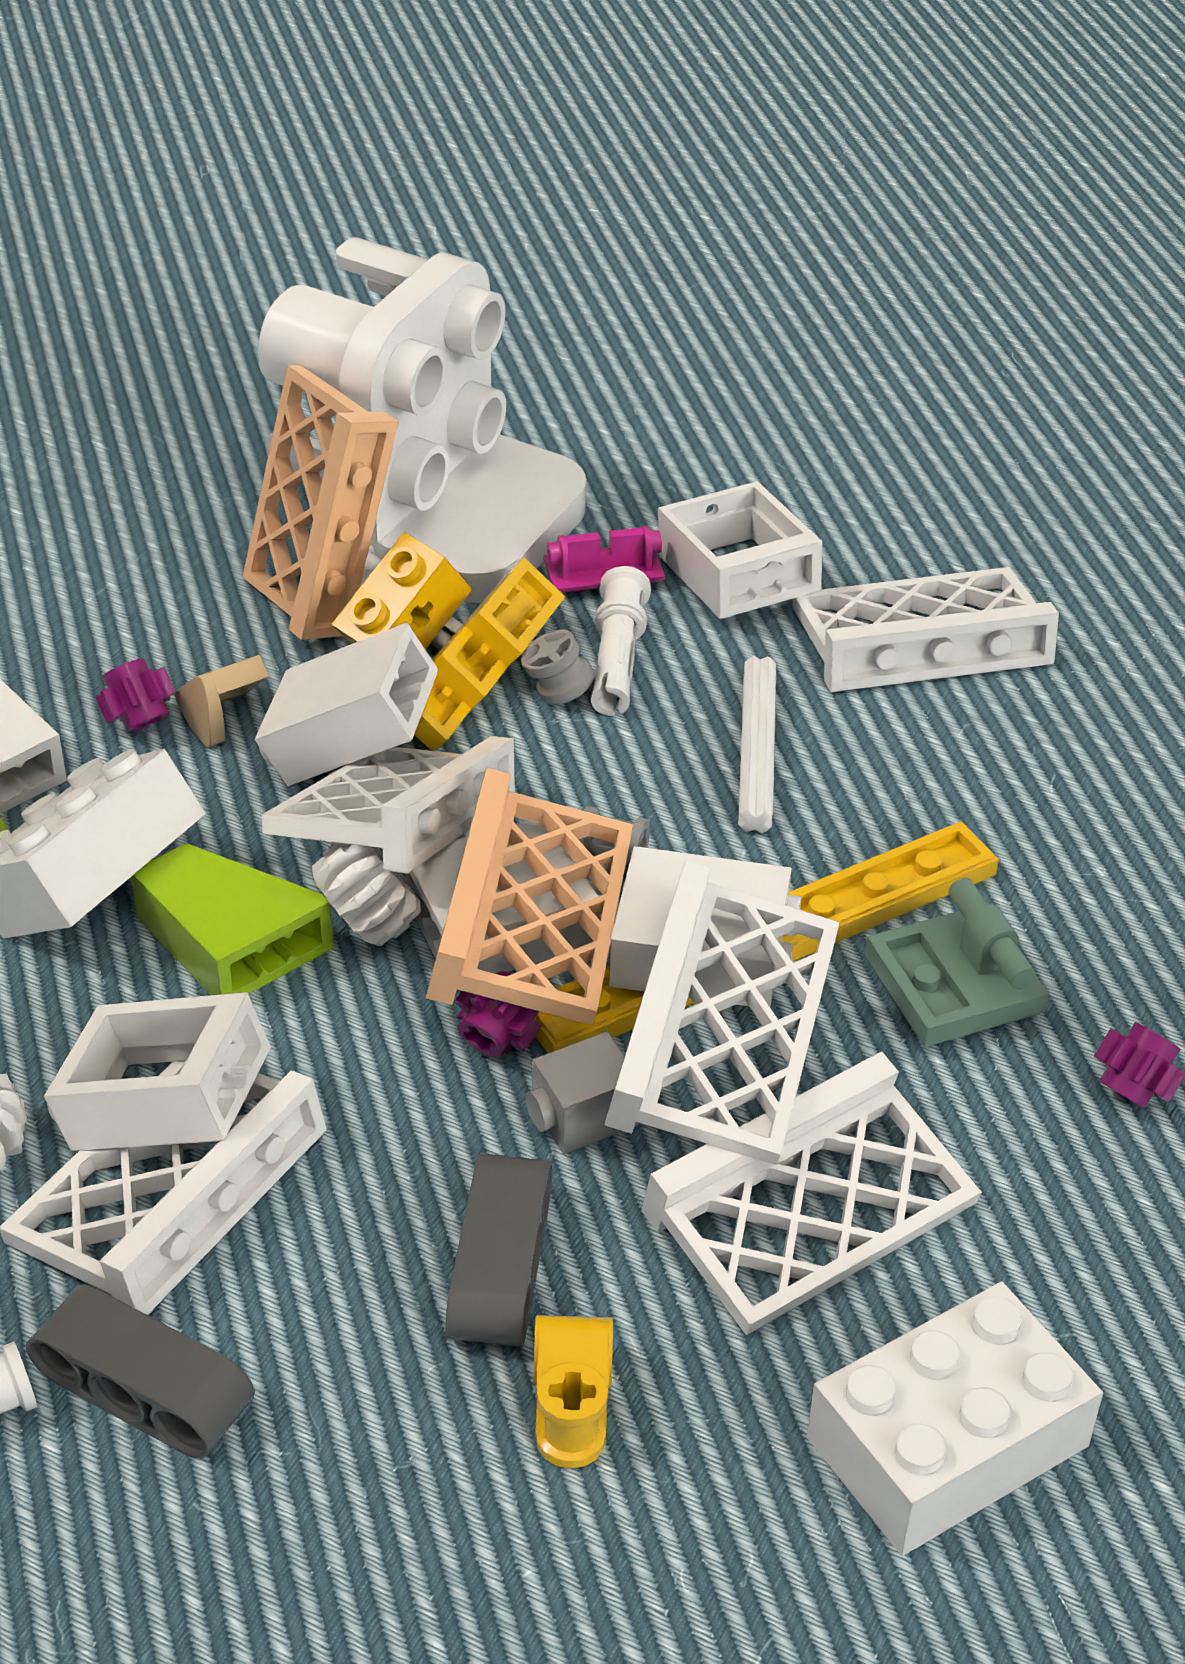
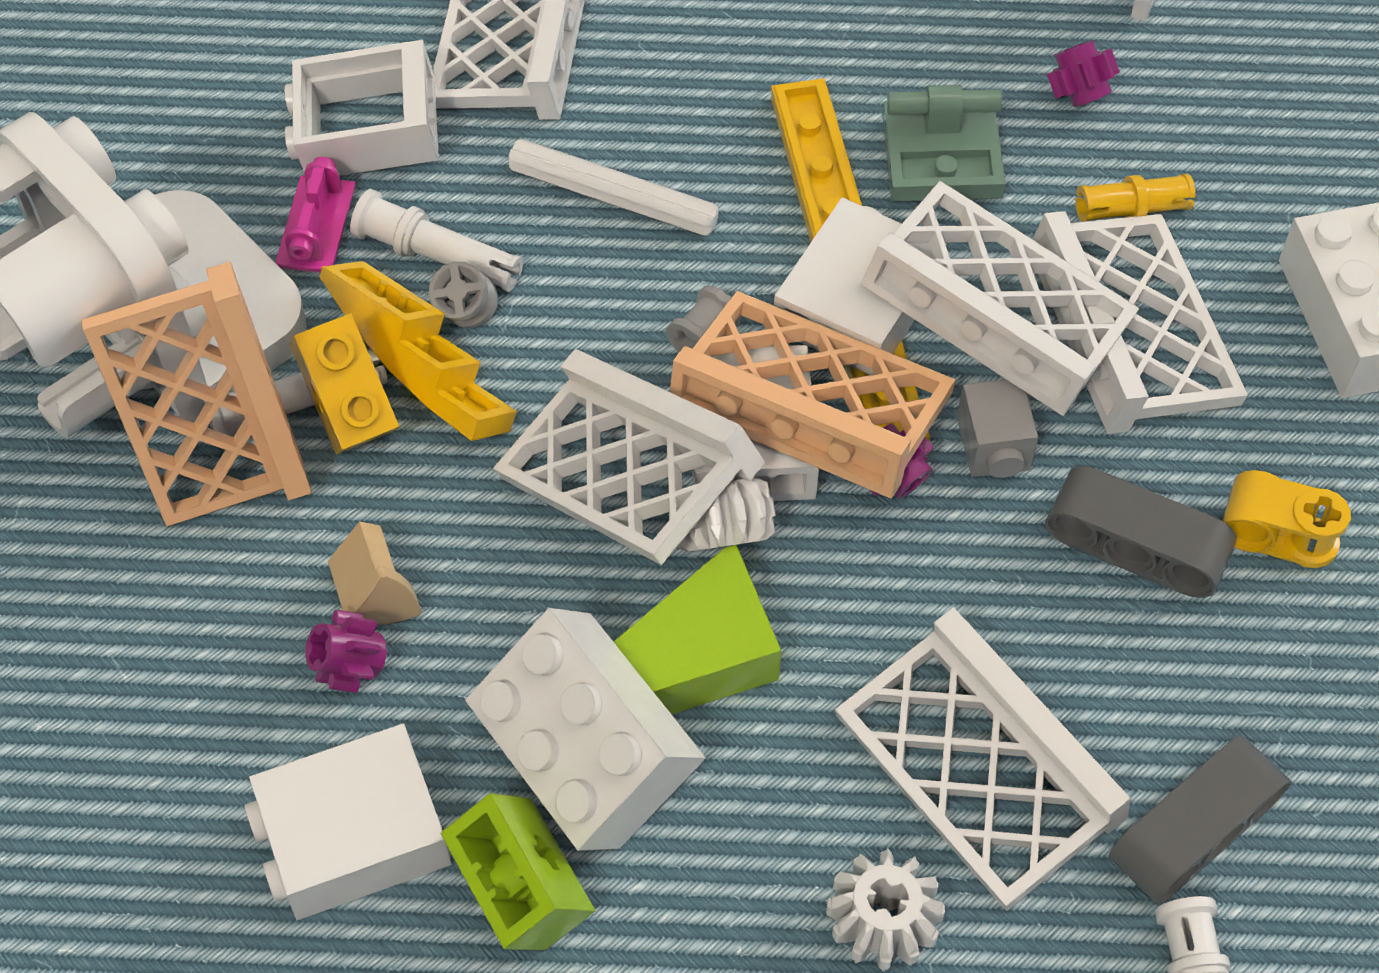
camera: 70 degrees left, 15 degrees up
(222, 1057) = (933, 667): white window -> none
(347, 705) = (475, 466): white brick -> none
(987, 1158) = (1135, 197): none -> yellow pin

